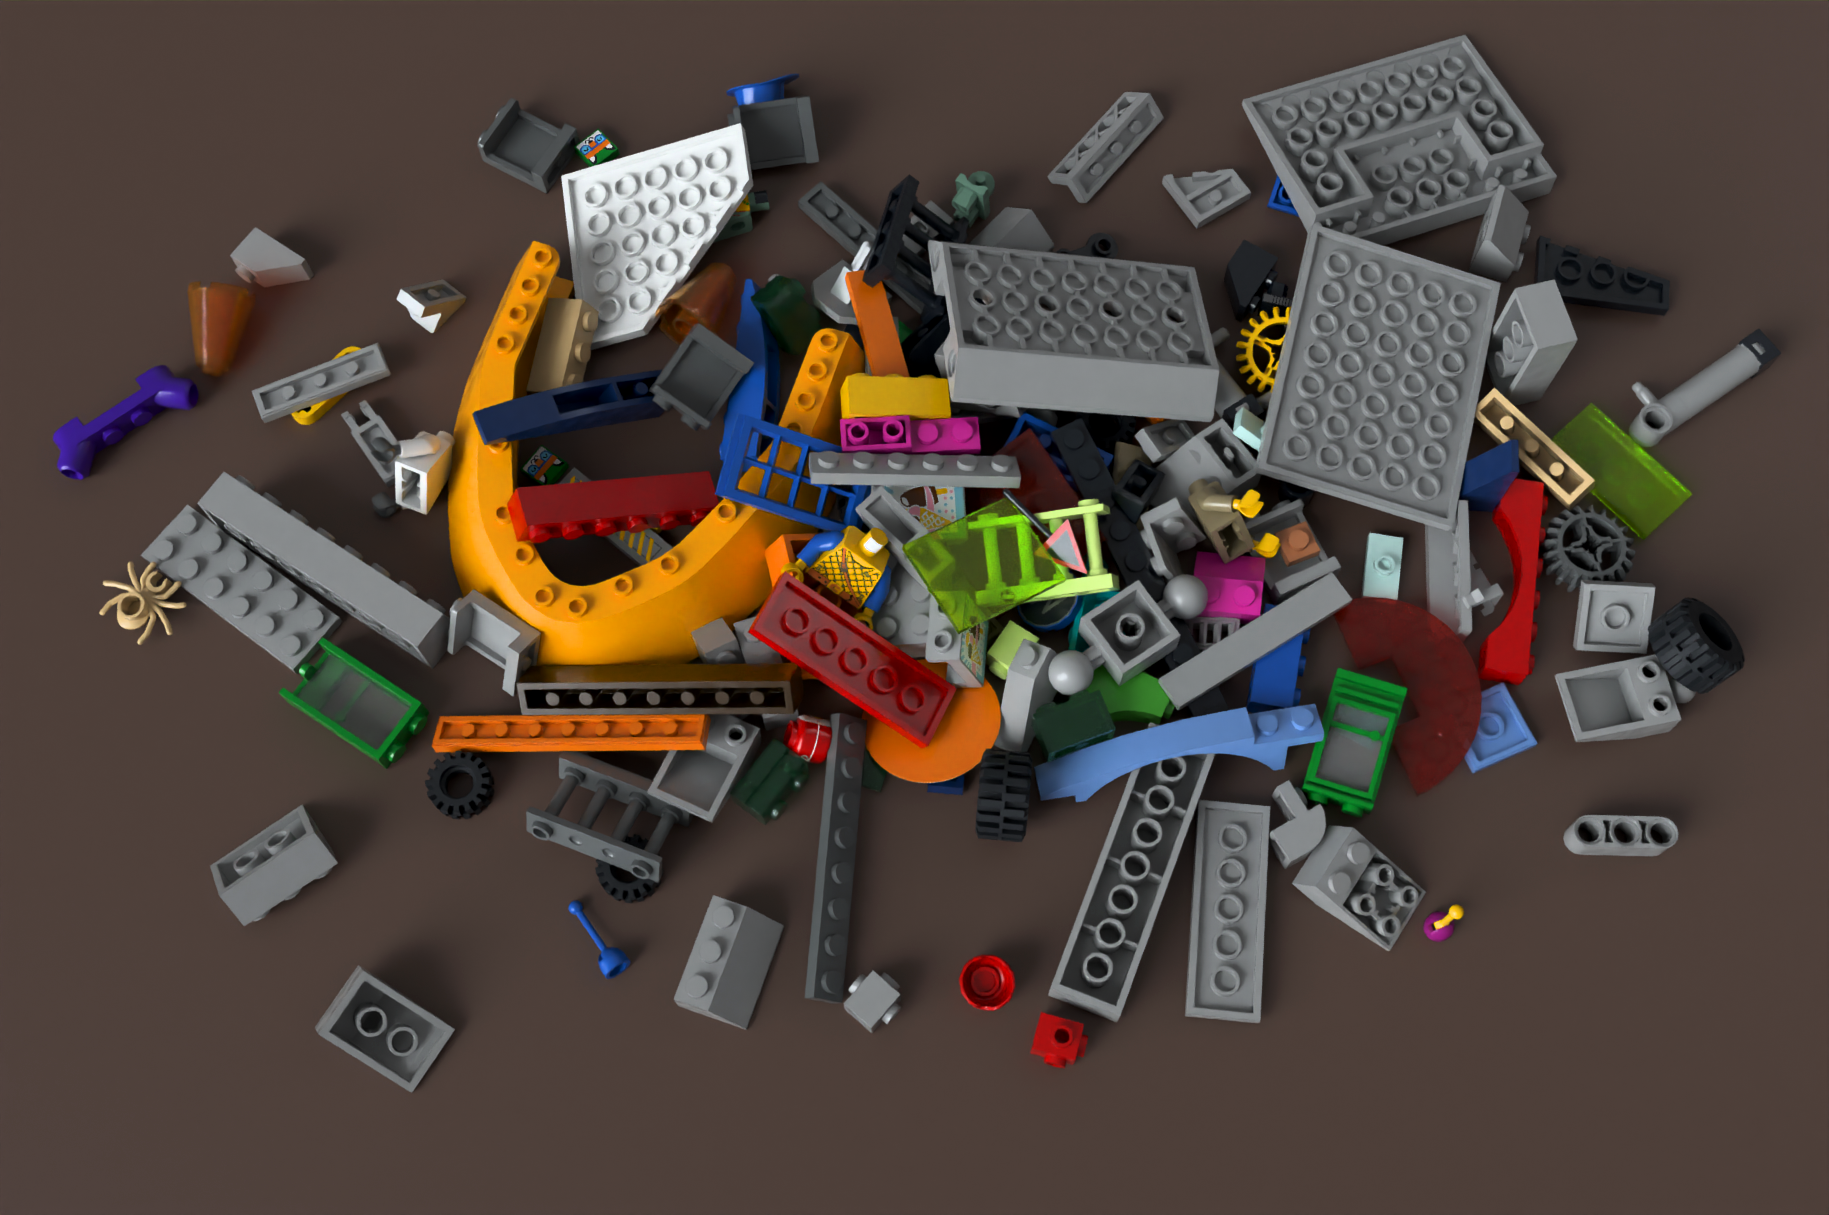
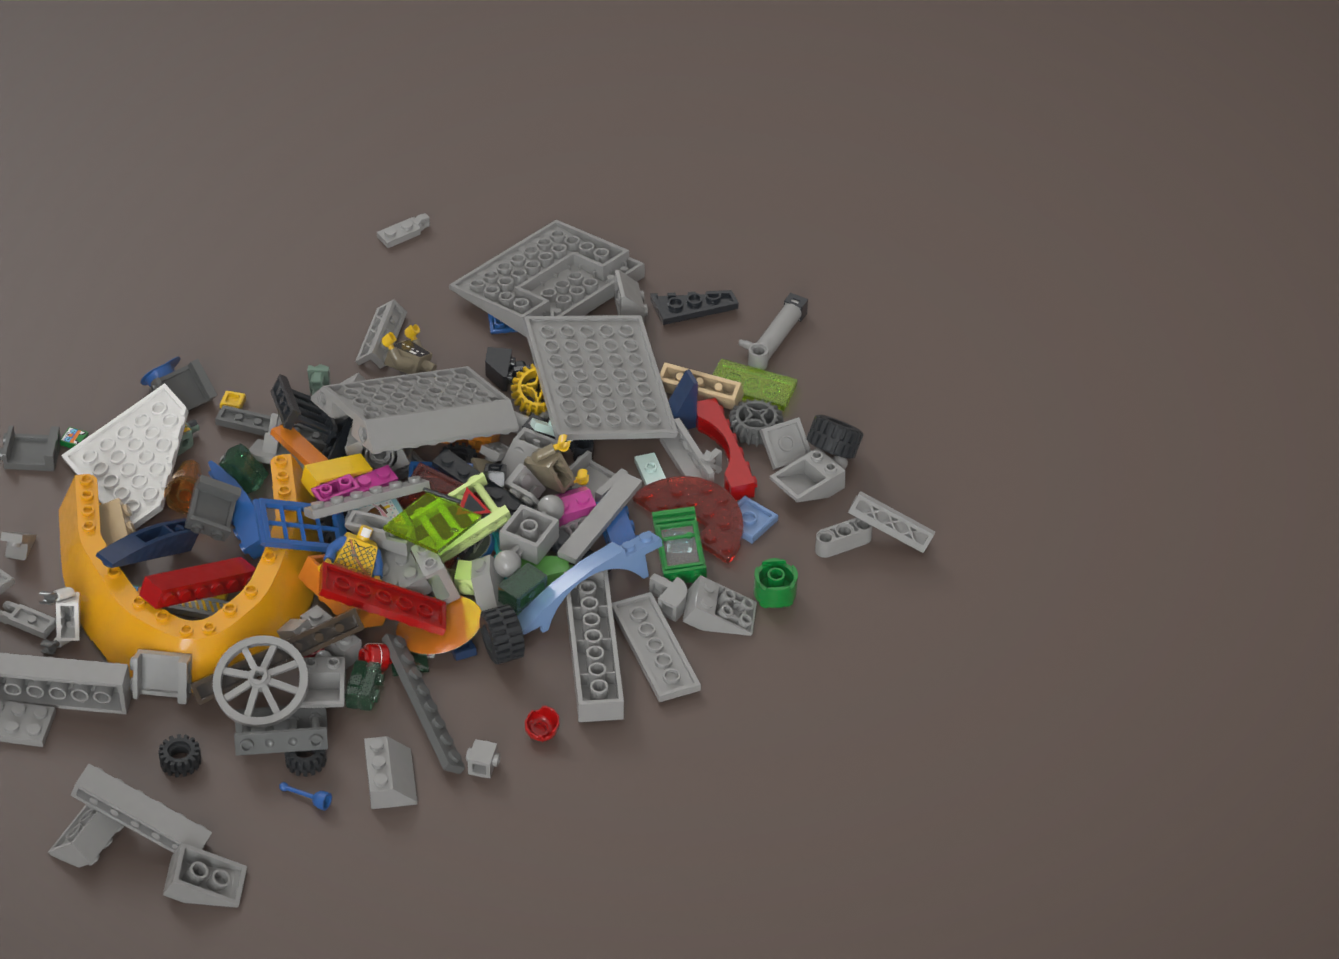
camera: 30 degrees left, 25 degrees down
(337, 886) = (138, 811): none -> light grey brick
(358, 705) = (92, 740): door -> none
(571, 733) = (211, 710): orange tile -> none
(616, 732) = (260, 685): none -> light grey wheel
(842, 176) = (233, 399): none -> yellow tile
(1058, 1040) = (596, 735): red brick -> none
(1123, 206) = (409, 354): none -> torso
(1207, 194) = (453, 338): light grey wing -> none
(1297, 544) = (598, 473): nougat plate -> none
(1443, 923) = (775, 611): magenta hinge -> none
(1486, 876) = (775, 583): none -> green brick
(1529, 342) = (671, 330): light grey brick -> none
(1706, 855) = (891, 522): none -> light grey fence

